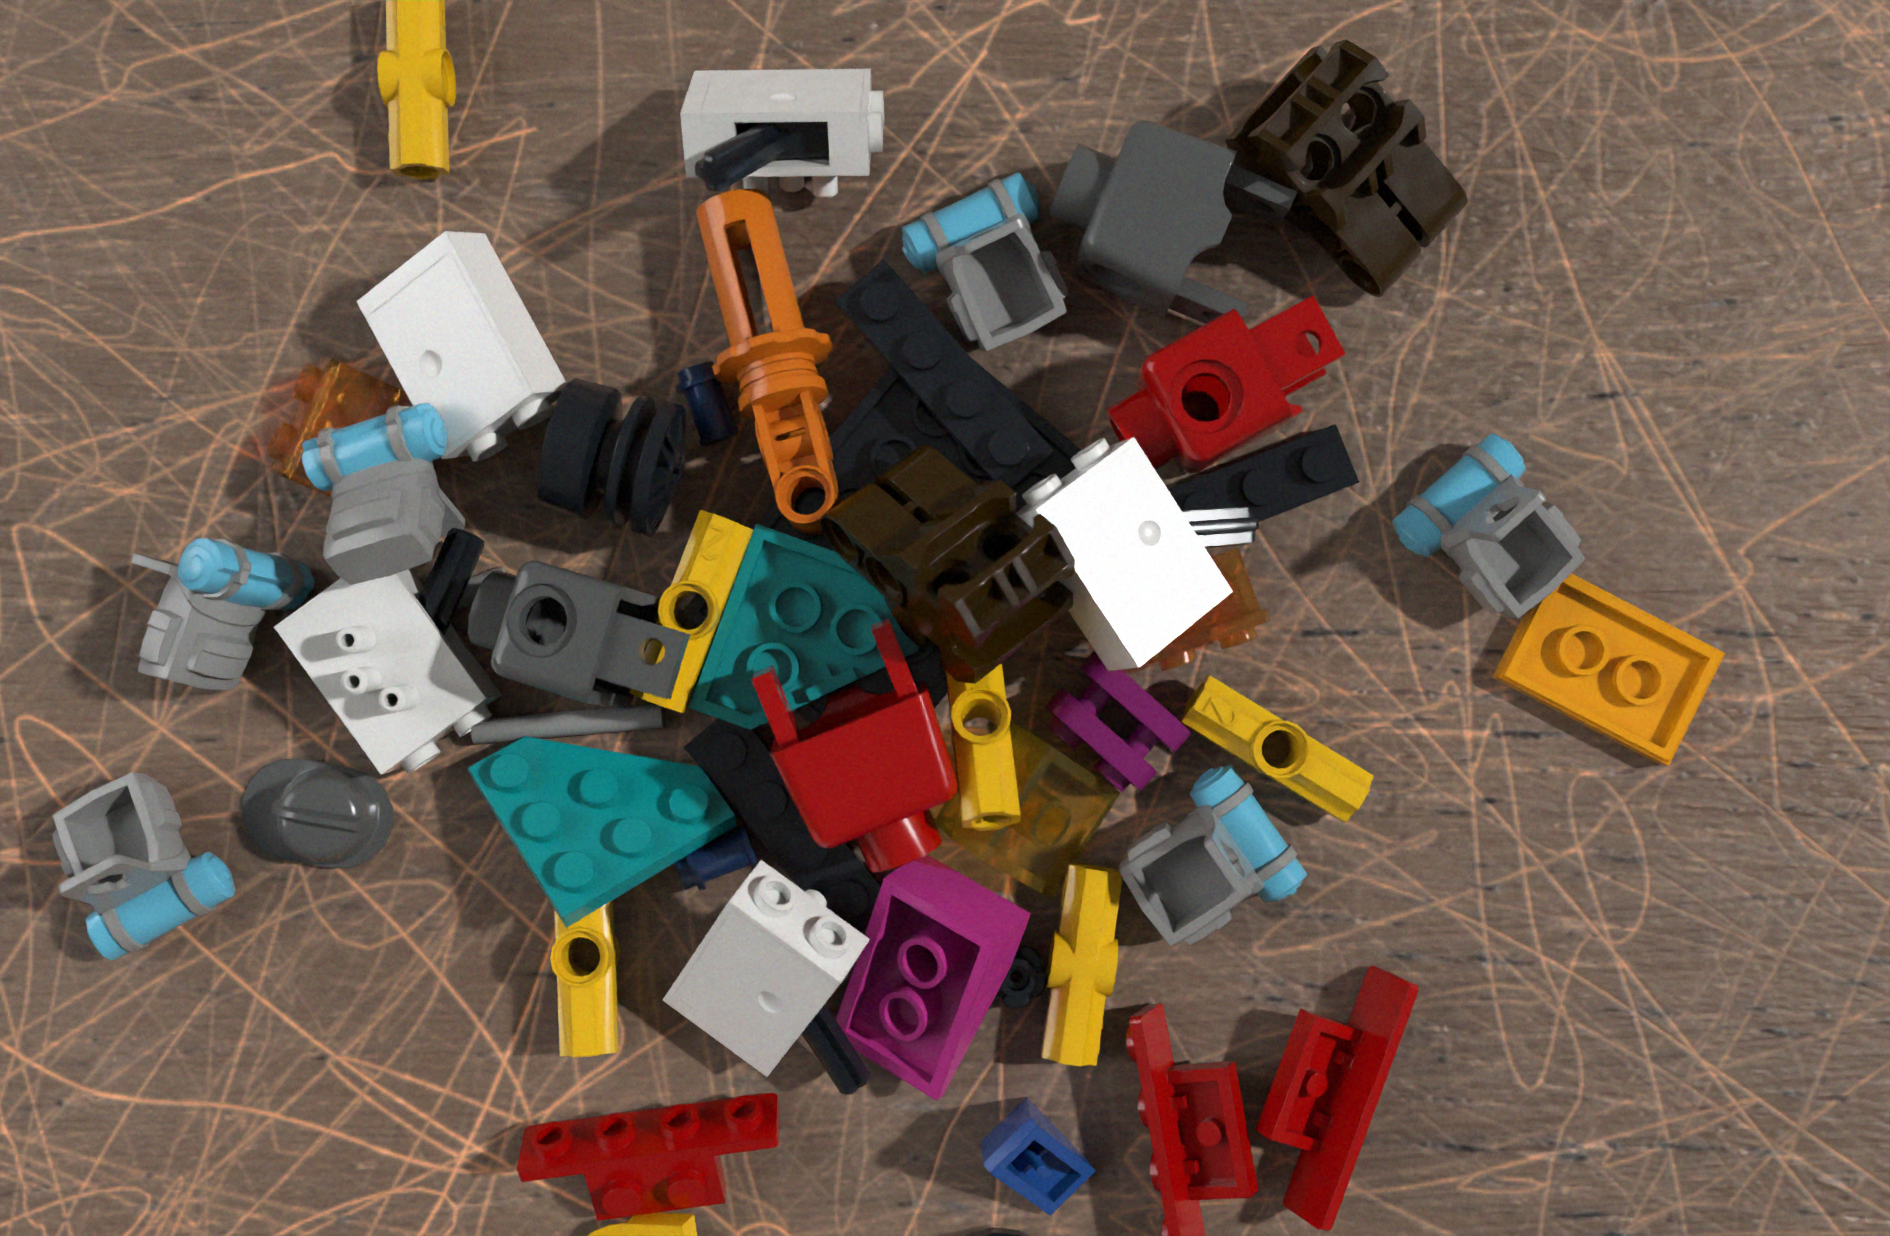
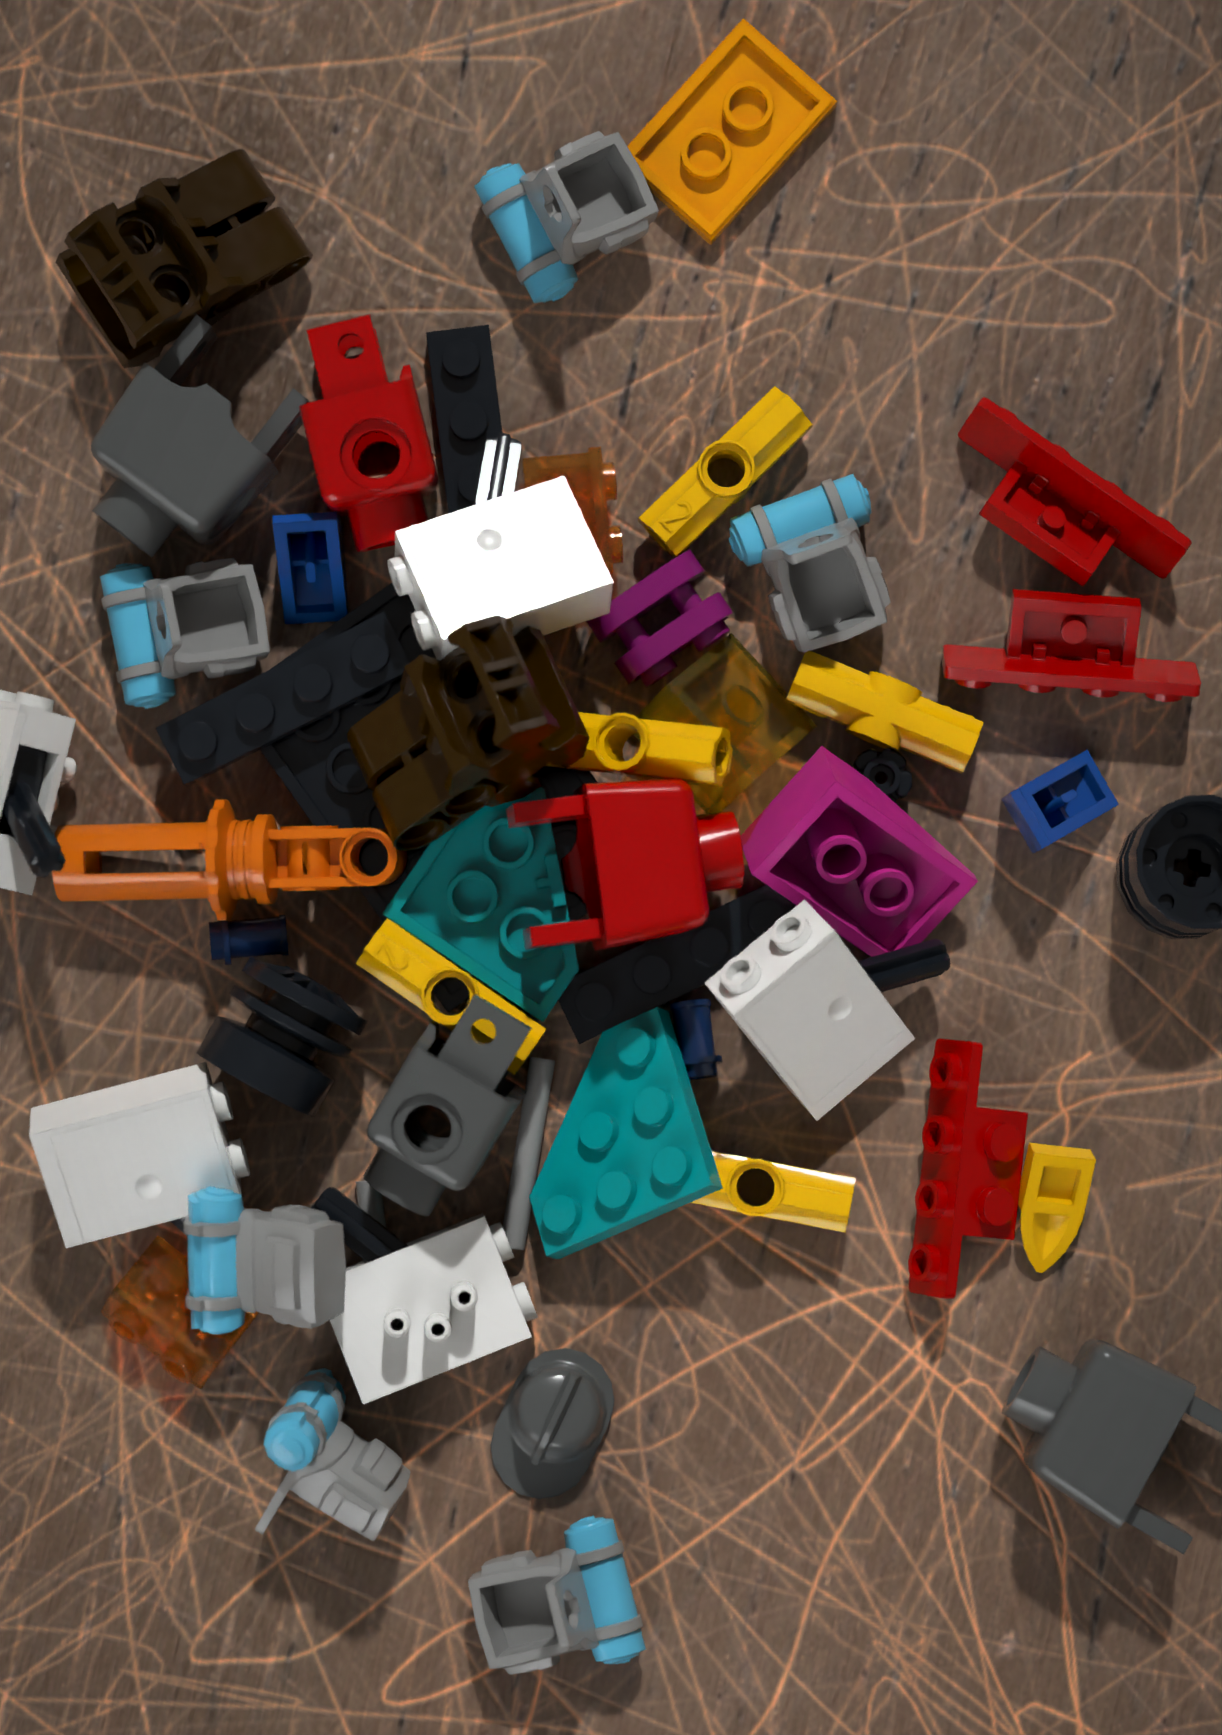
camera: 75 degrees left, 0 degrees up
(1081, 370) = (311, 566): none -> blue slope

